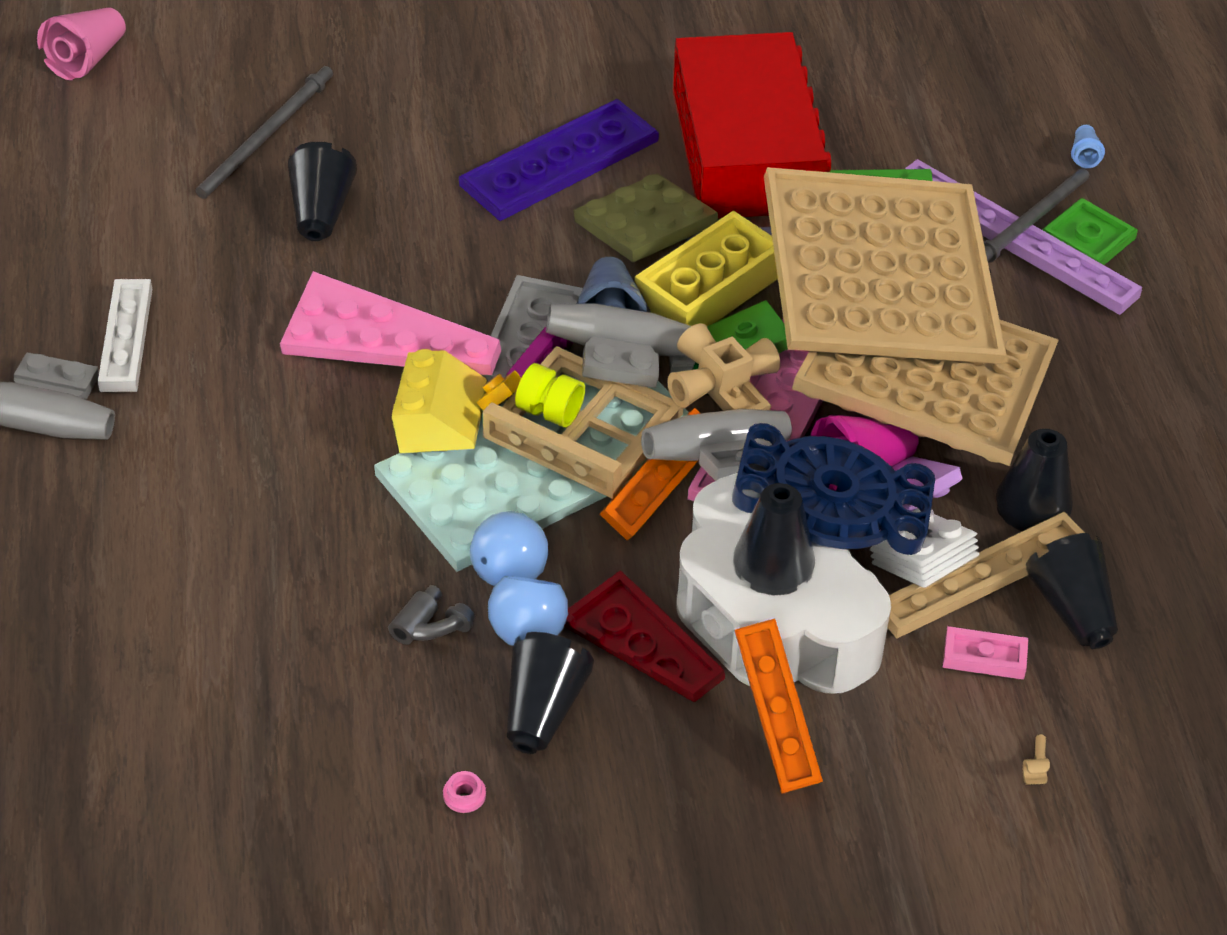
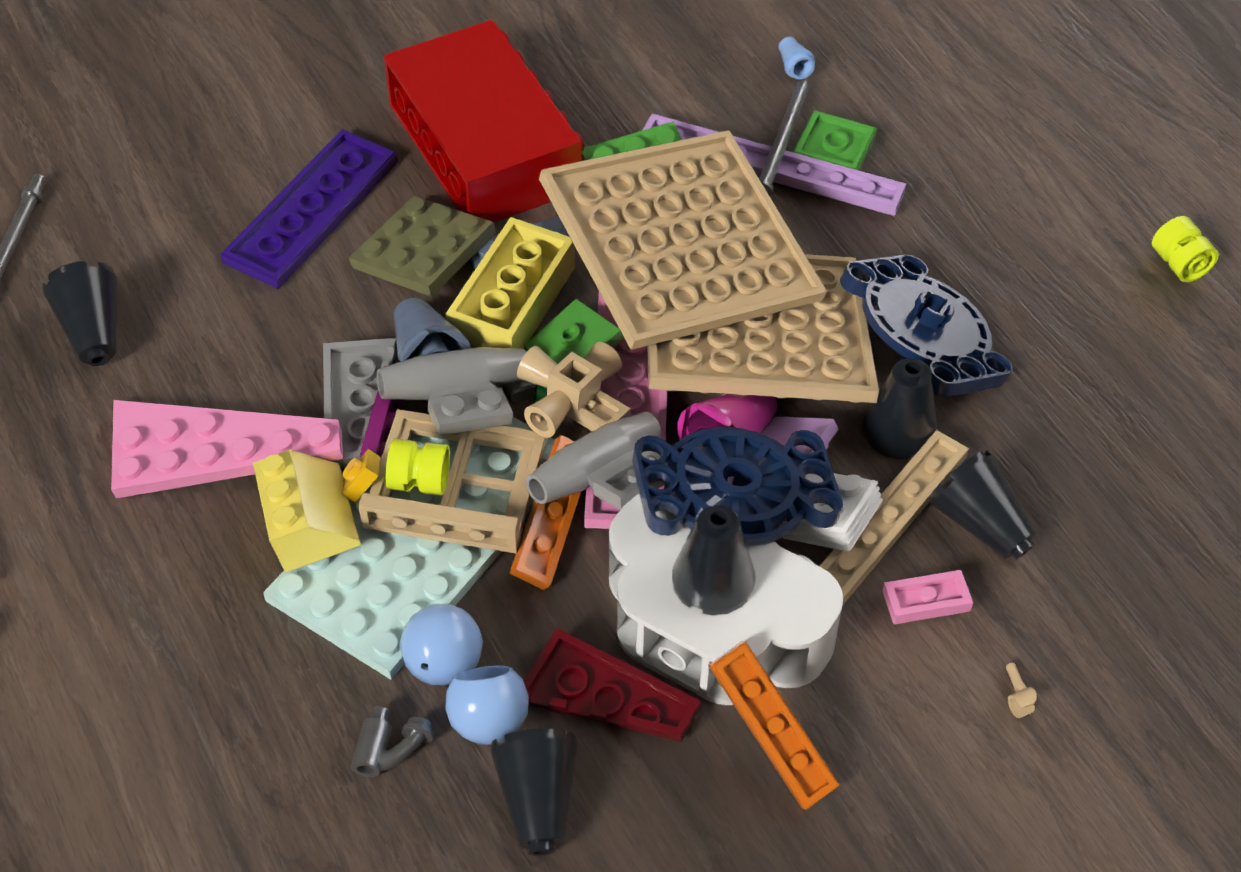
camera: 20 degrees left, 5 degrees up
(1100, 416) = (927, 323): none -> dark blue piece

